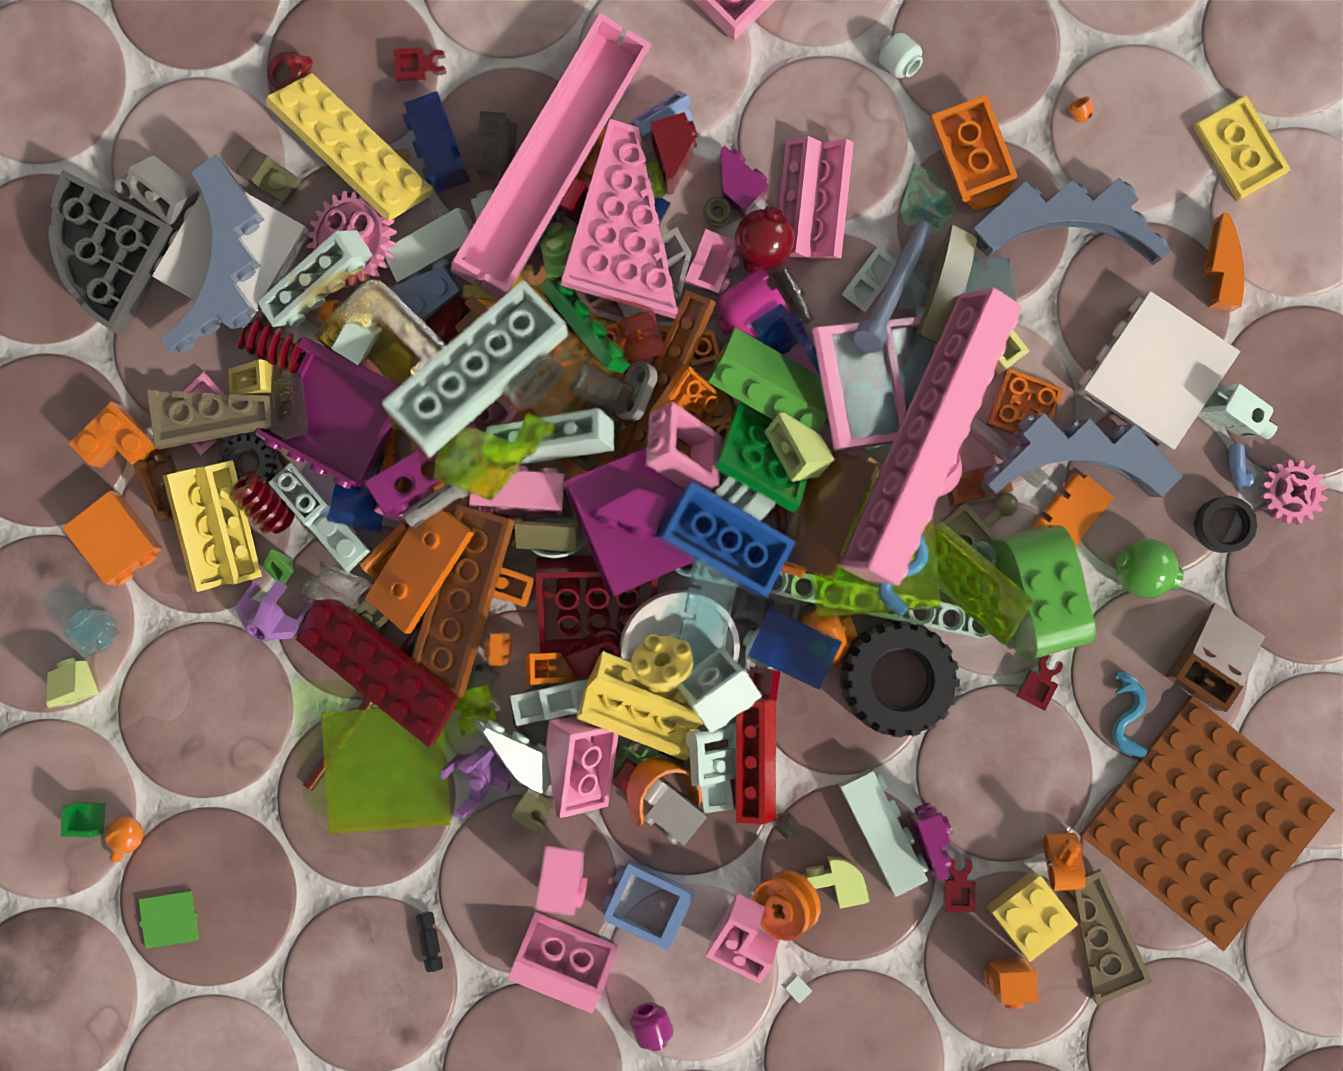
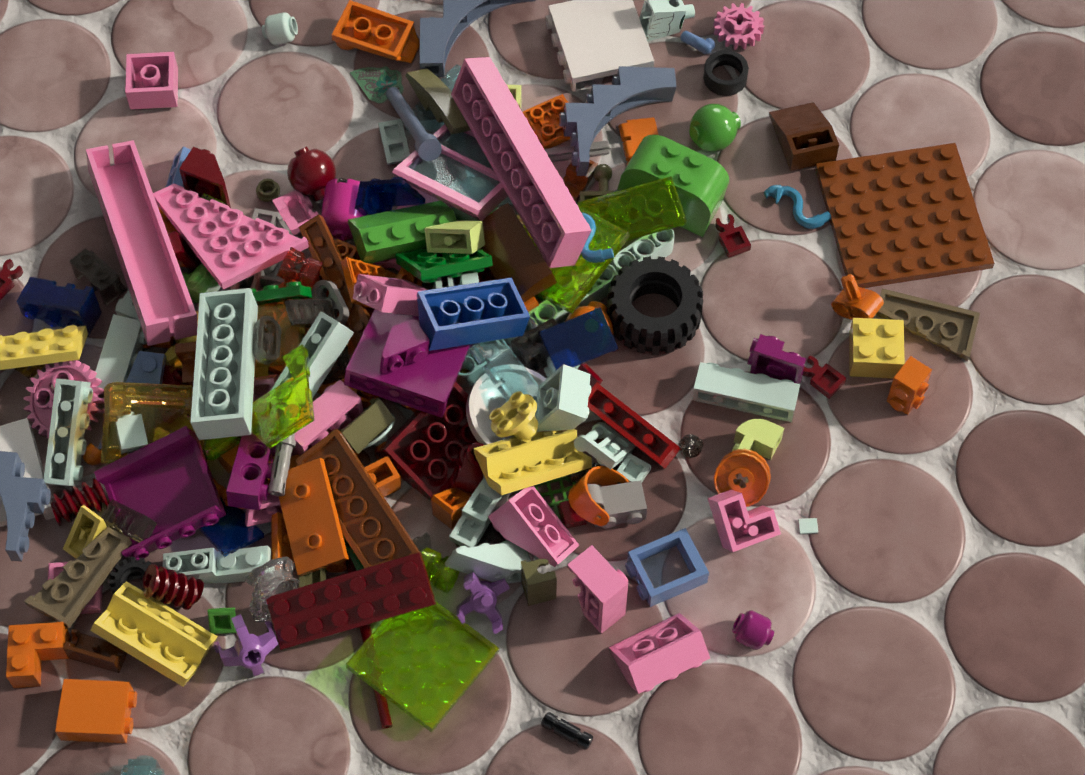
camera: 50 degrees left, 25 degrees down
(498, 648) = (412, 510): orange plate -> none
(740, 183) = (262, 163): magenta slope -> none
(816, 195) = (313, 125): bright pink slope -> none

